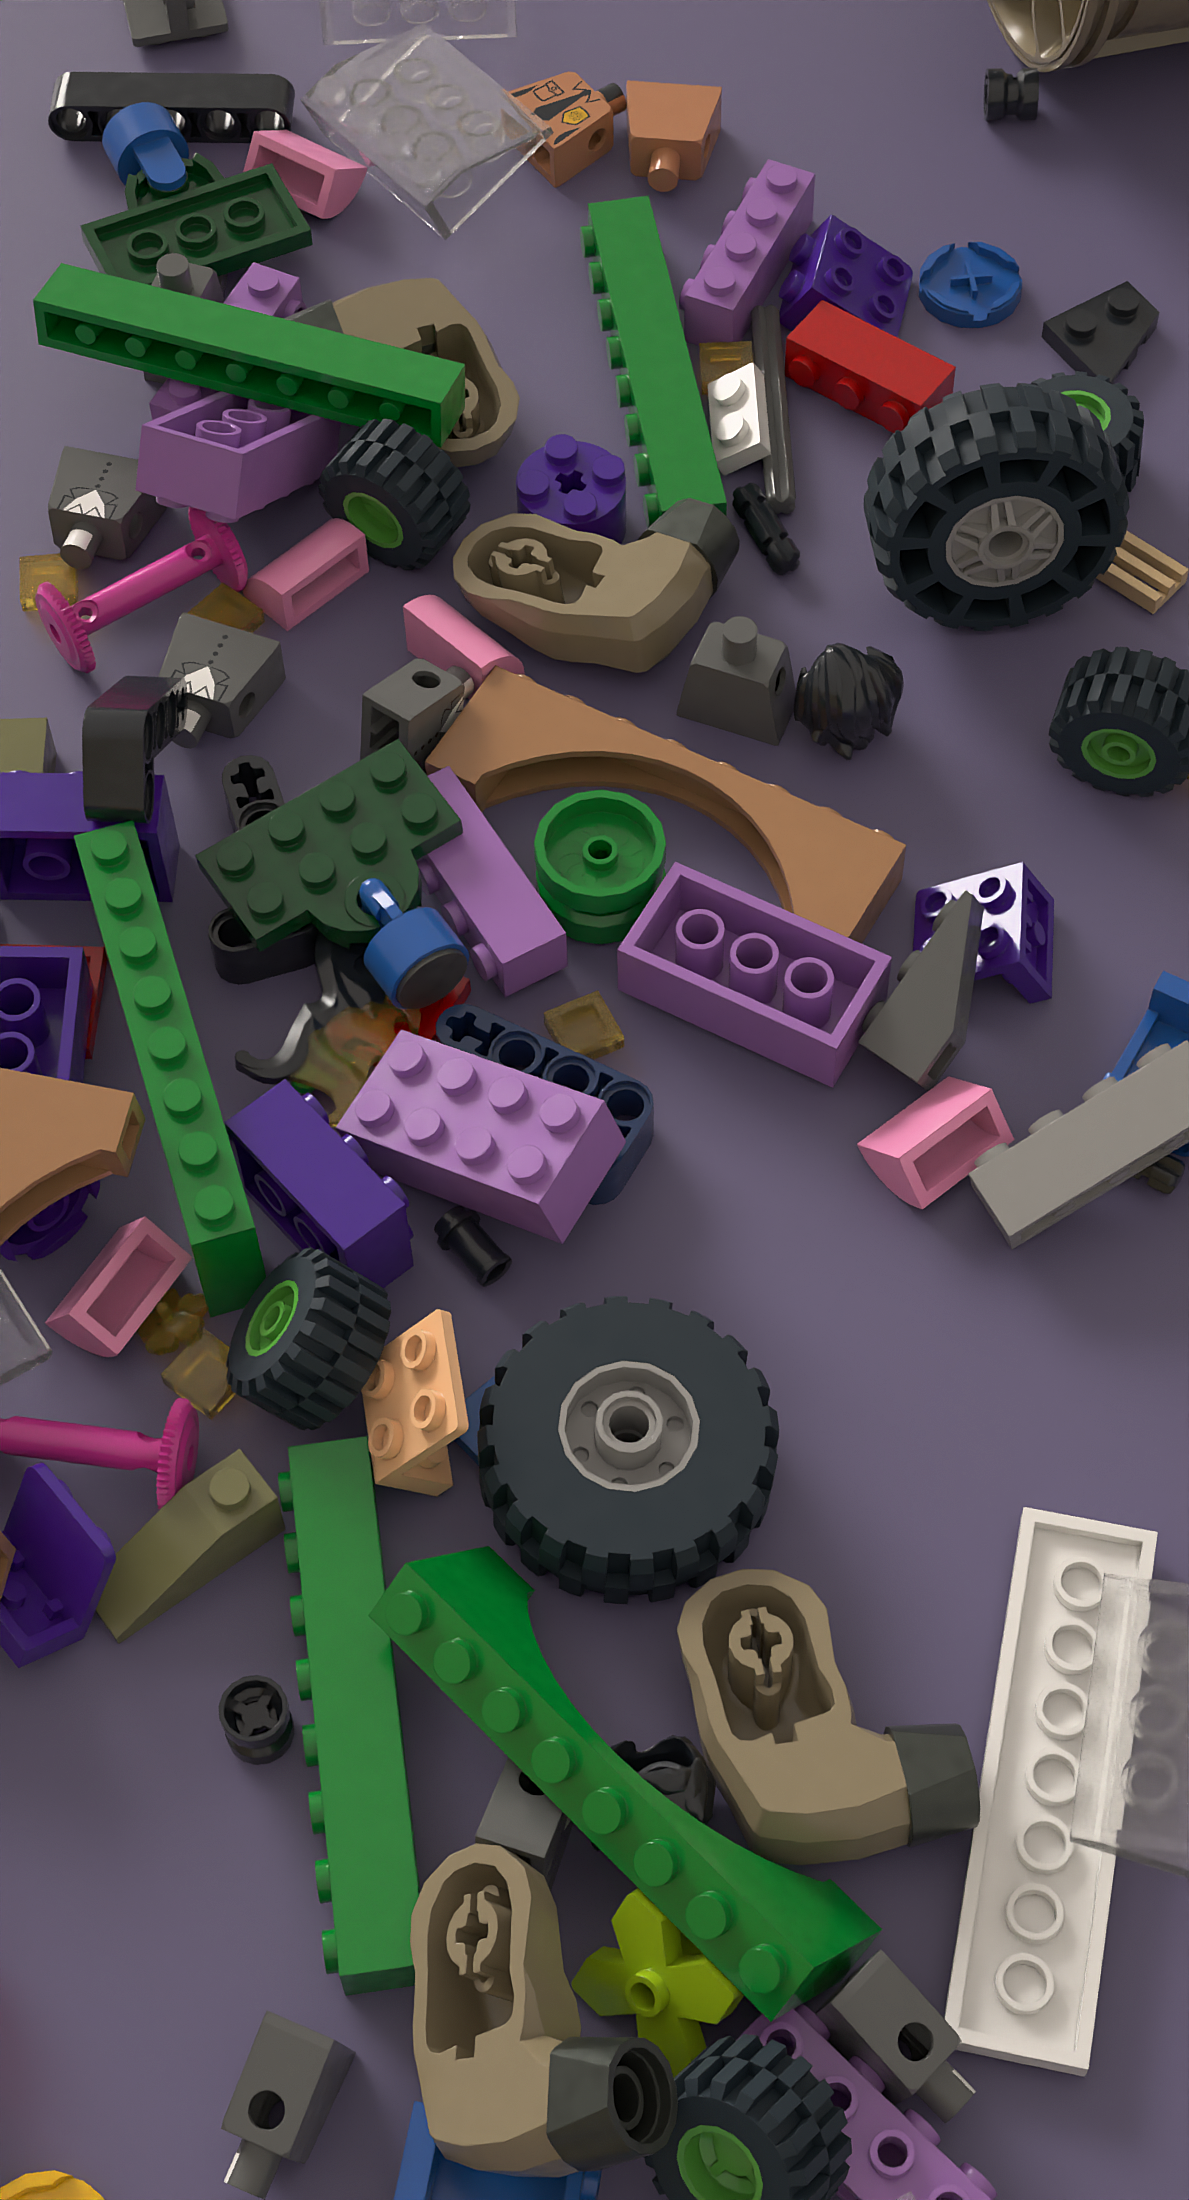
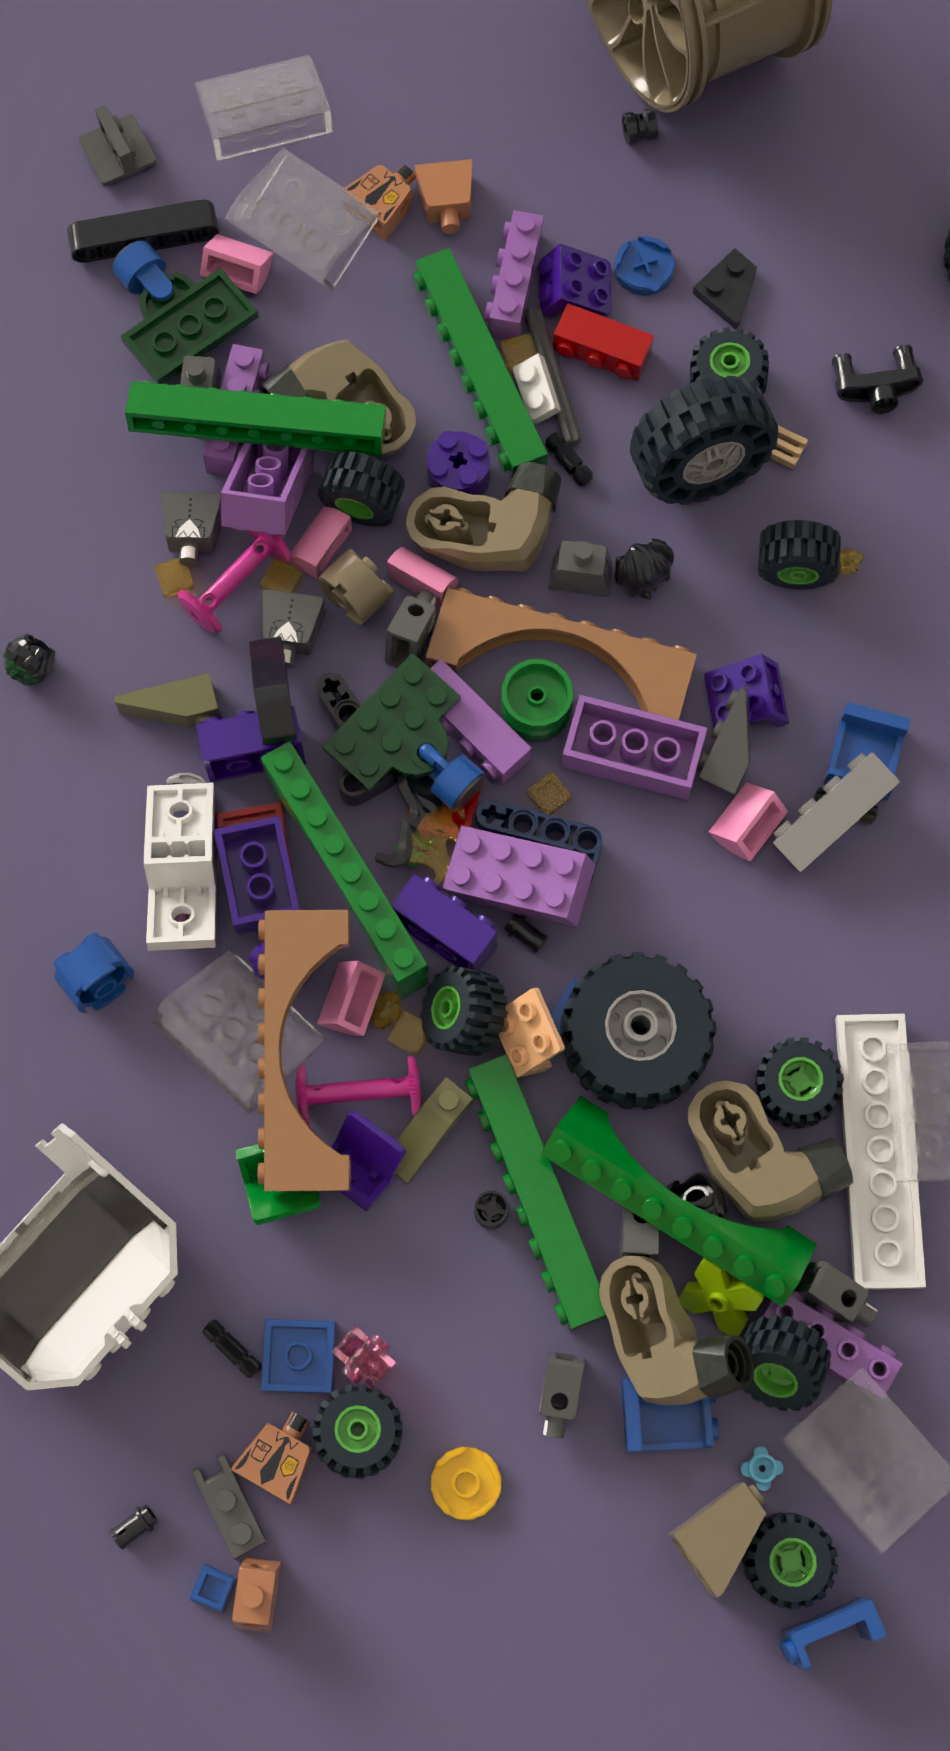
camera: 15 degrees left, 15 degrees up
(338, 636) = (355, 586): none -> dark tan brick
(918, 1613) = (799, 1082): none -> black wheel

